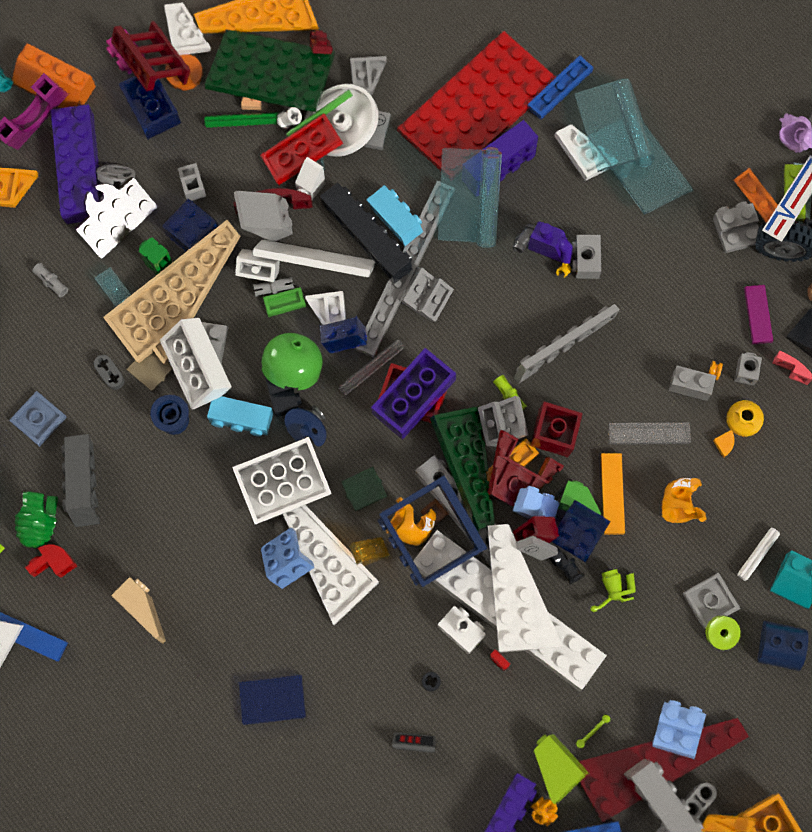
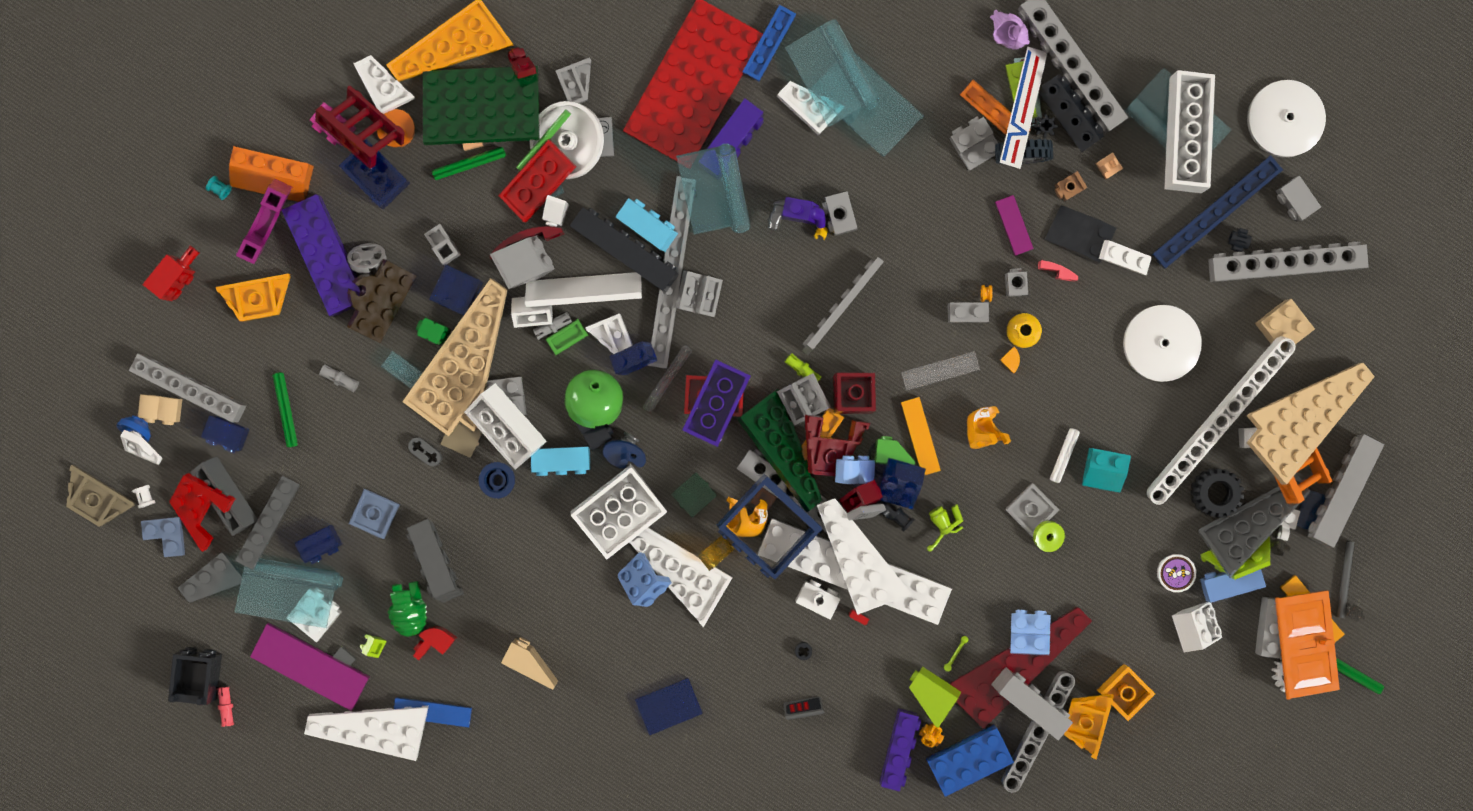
camera: 20 degrees left, 15 degrees up
(291, 117) = (514, 151): white bush -> none
(783, 646) = (1104, 532): dark blue brick -> none

